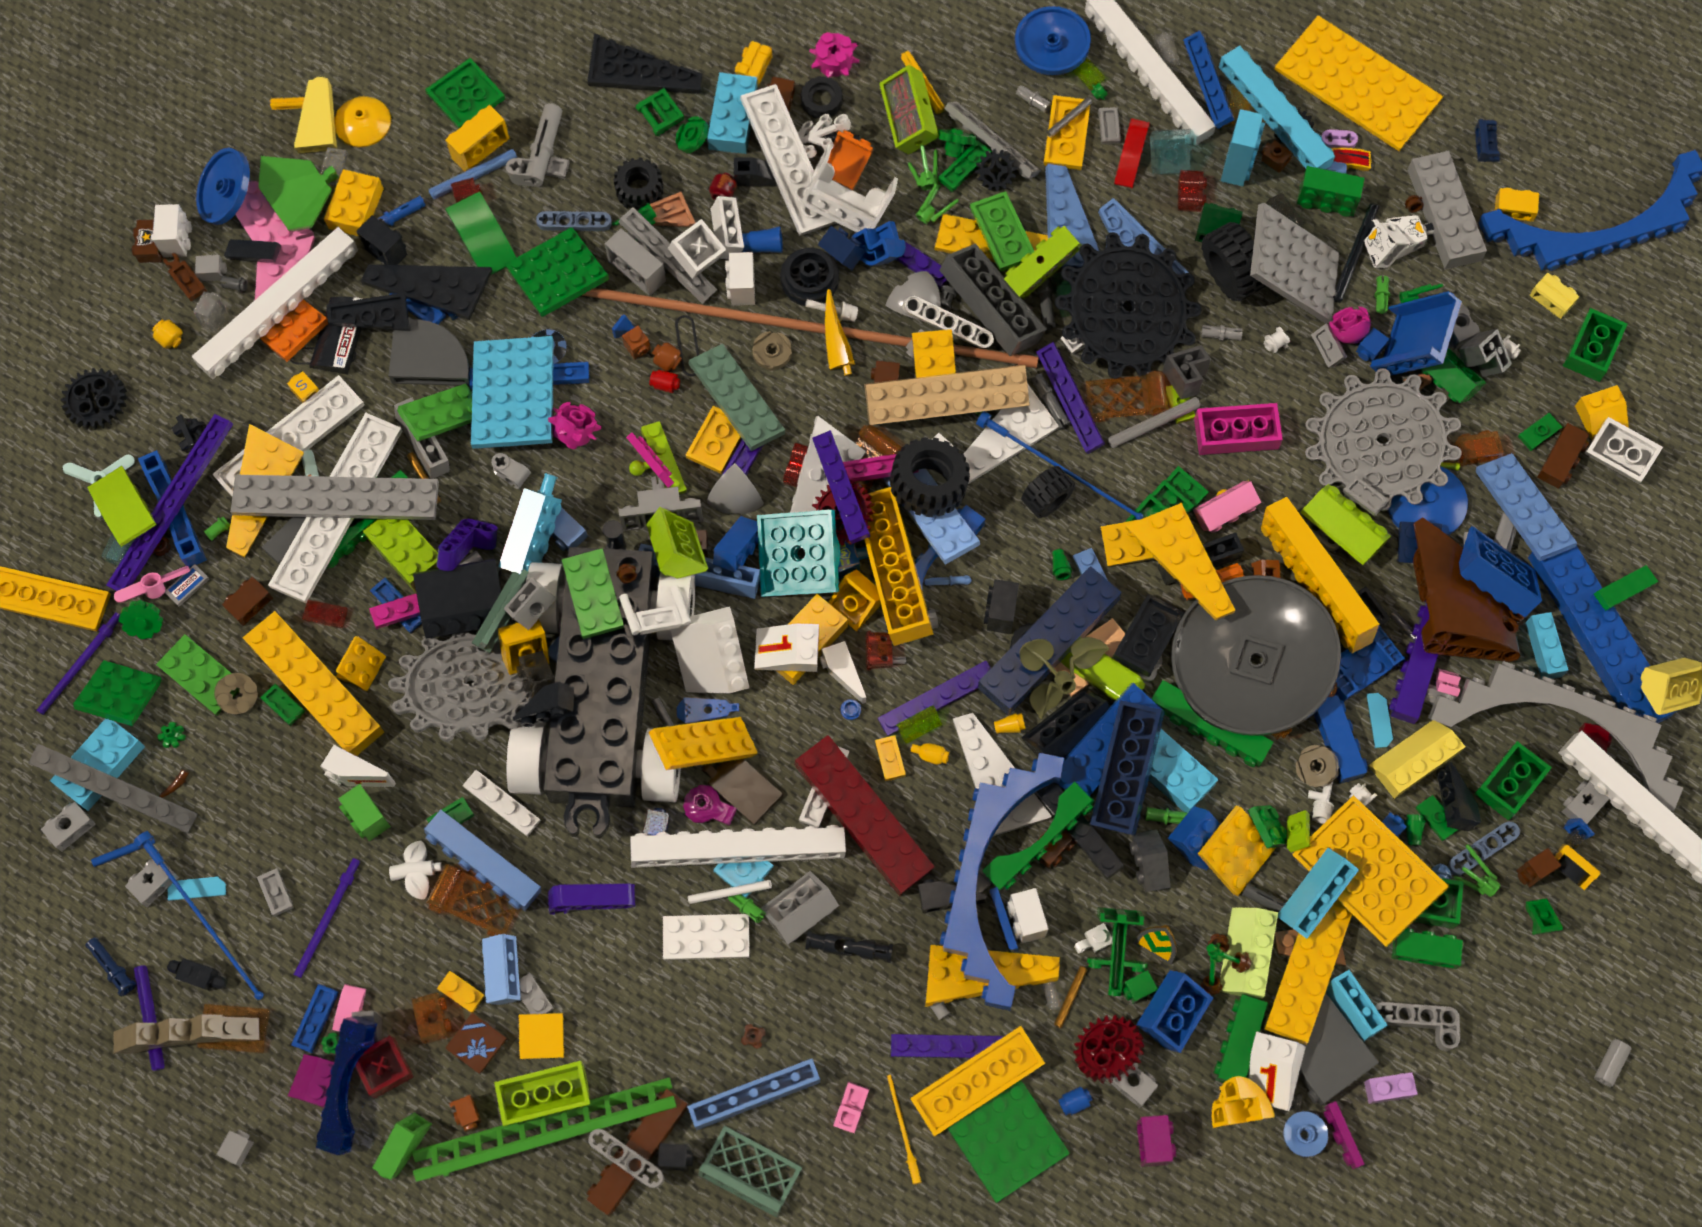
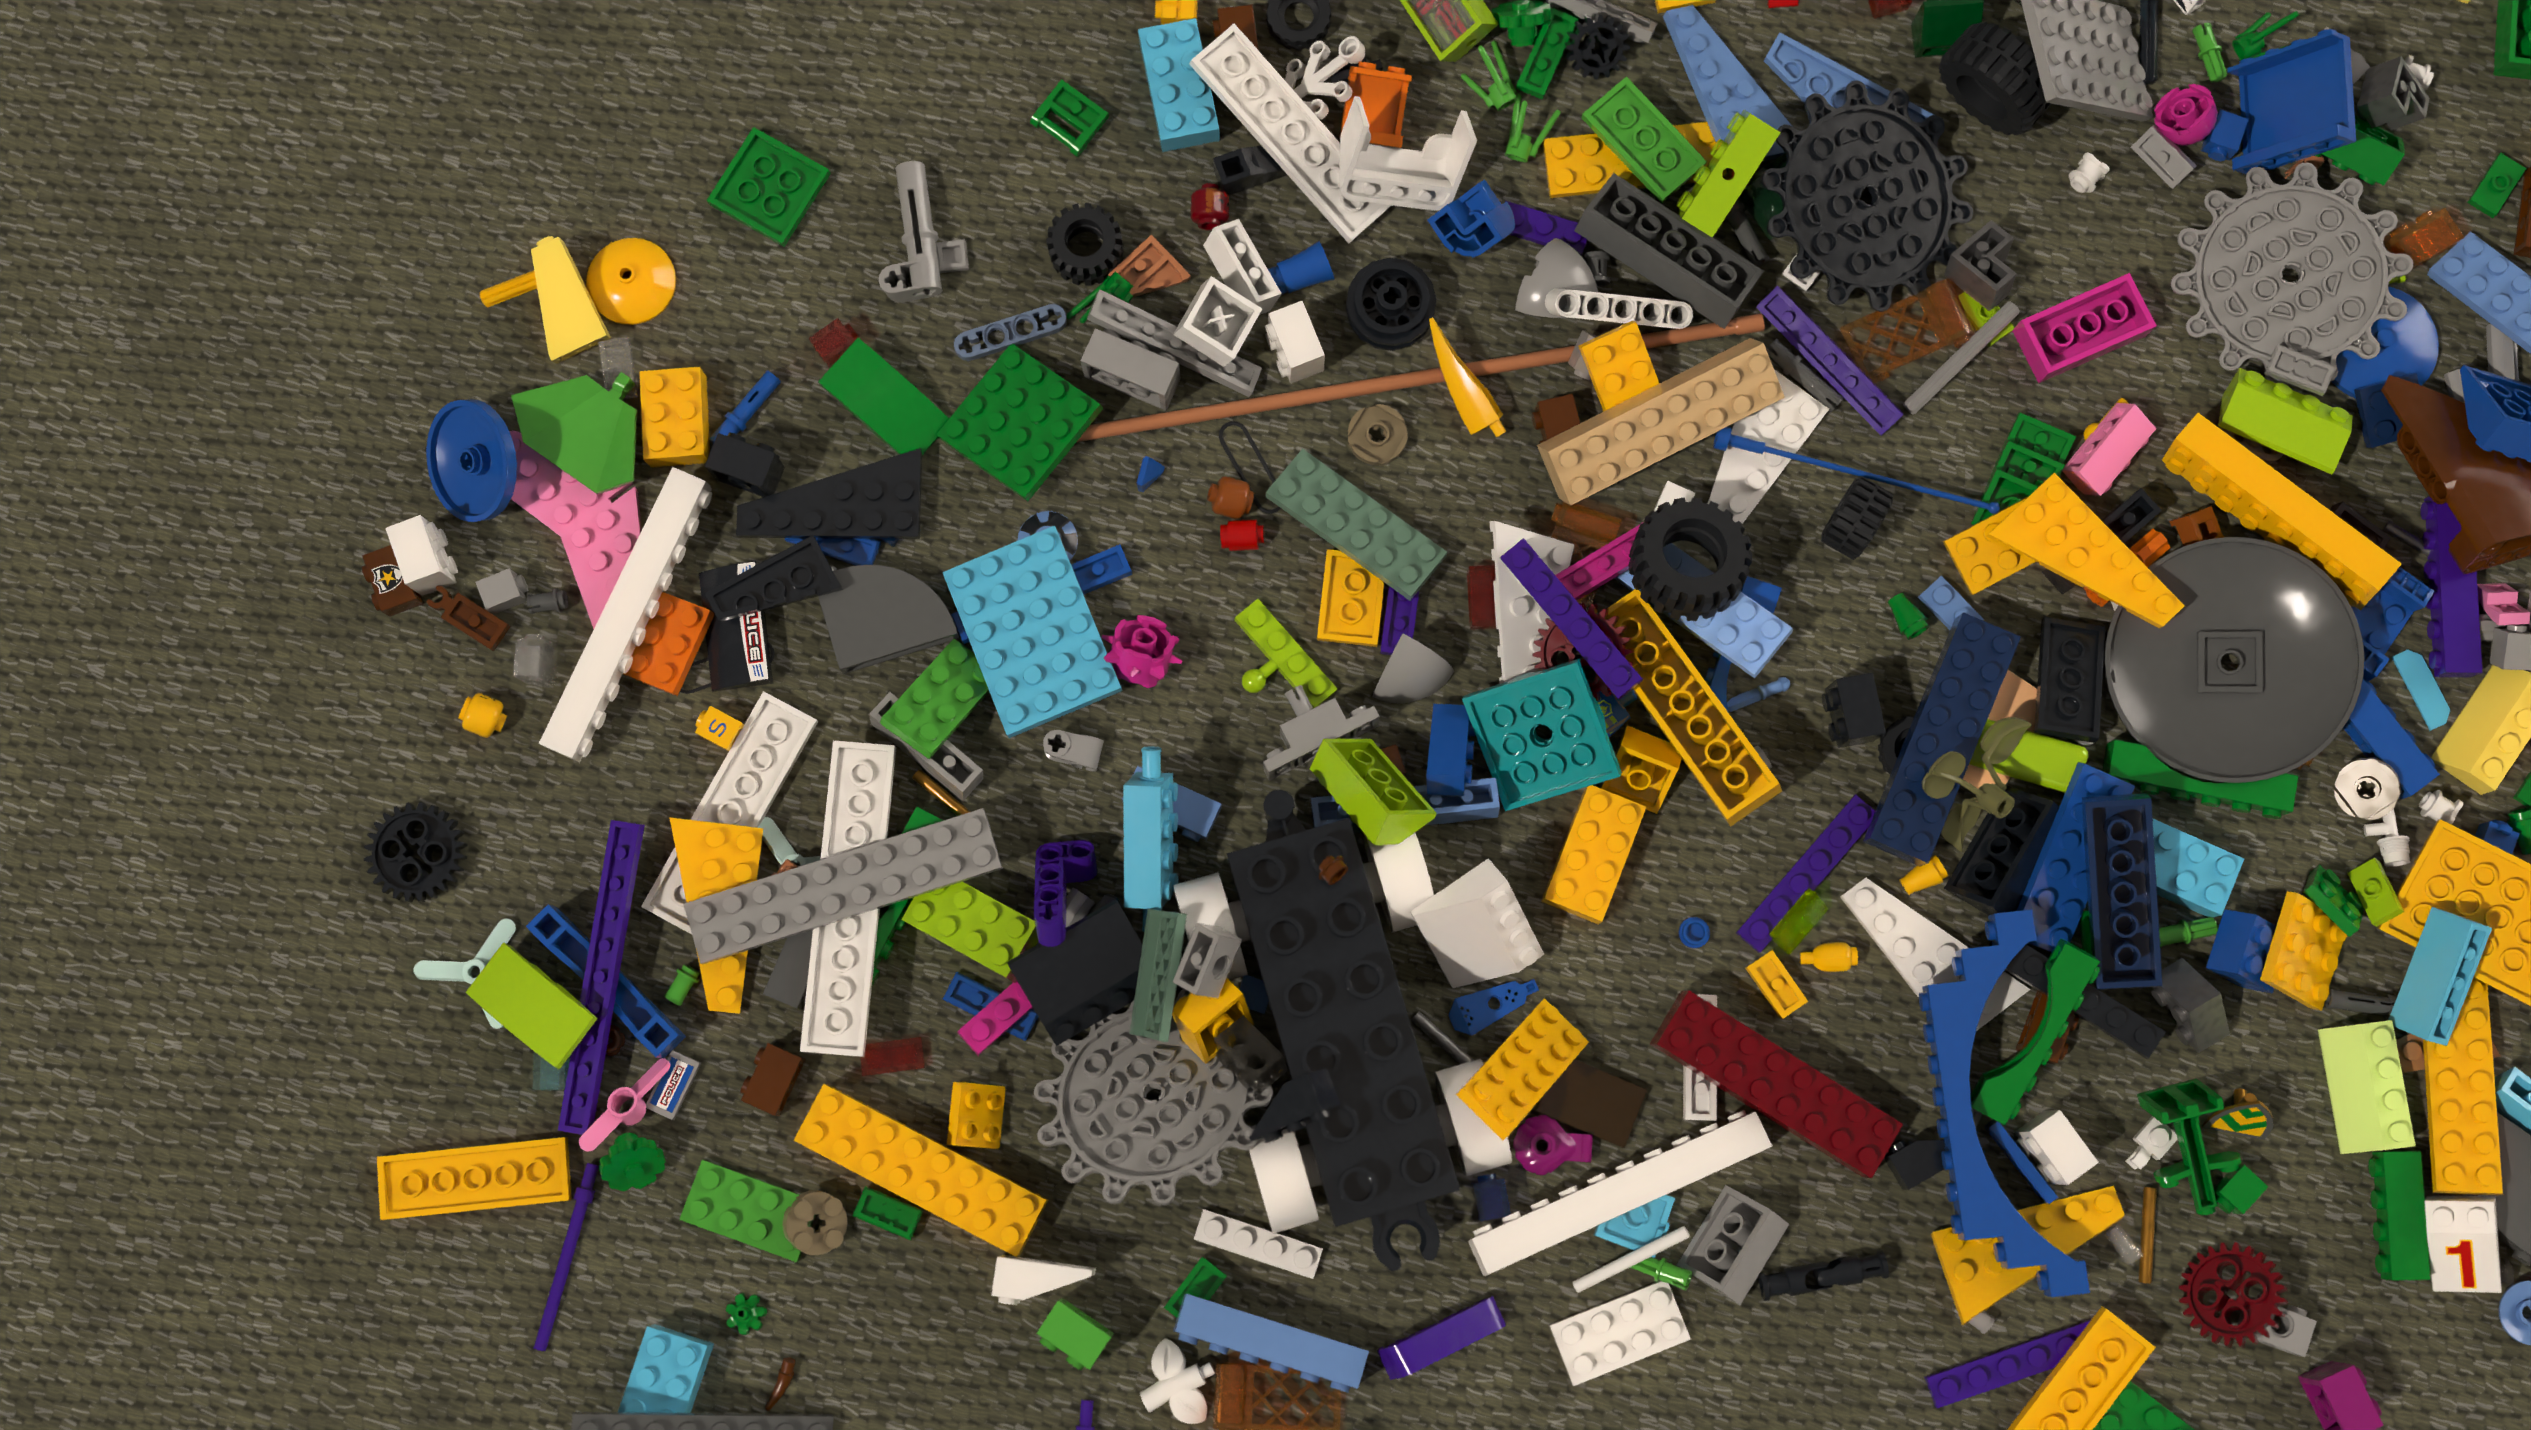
camera: 20 degrees left, 10 degrees up
(117, 693) = (644, 1284): green plate -> none
(190, 429) = (583, 852): black hips -> none
(252, 250) = (555, 542): black tile -> none
(475, 172) = (831, 308): medium blue axle -> none
(477, 138) = (819, 254): yellow brick -> none
(592, 593) = (1295, 916): bright green plate -> none
(634, 69) = (1001, 63): black wing -> none
(636, 342) = (1179, 491): dark orange brick -> none
(651, 459) = (1283, 671): dark pink plate -> none
(657, 619) = (1399, 920): white plate -> none
(692, 134) = (1133, 139): green tile -> none
(787, 648) = (1583, 883): white slope -> none
(841, 247) = (1421, 244): dark blue brick -> none
(841, 667) = (1660, 876): white slope -> none
(845, 312) = (1462, 339): white piece -> none
(878, 650) = (1699, 832): clear red piece -> none
(1075, 1101) = (2209, 1379): blue brick -> none
(1174, 1011) = (2302, 1209): blue brick -> none
(1216, 950) = (2367, 1110): reddish brown plant -> none
(1221, 332) = (2005, 187): light grey pin -> none
(1240, 1102) = (2432, 1305): yellow brick -> none

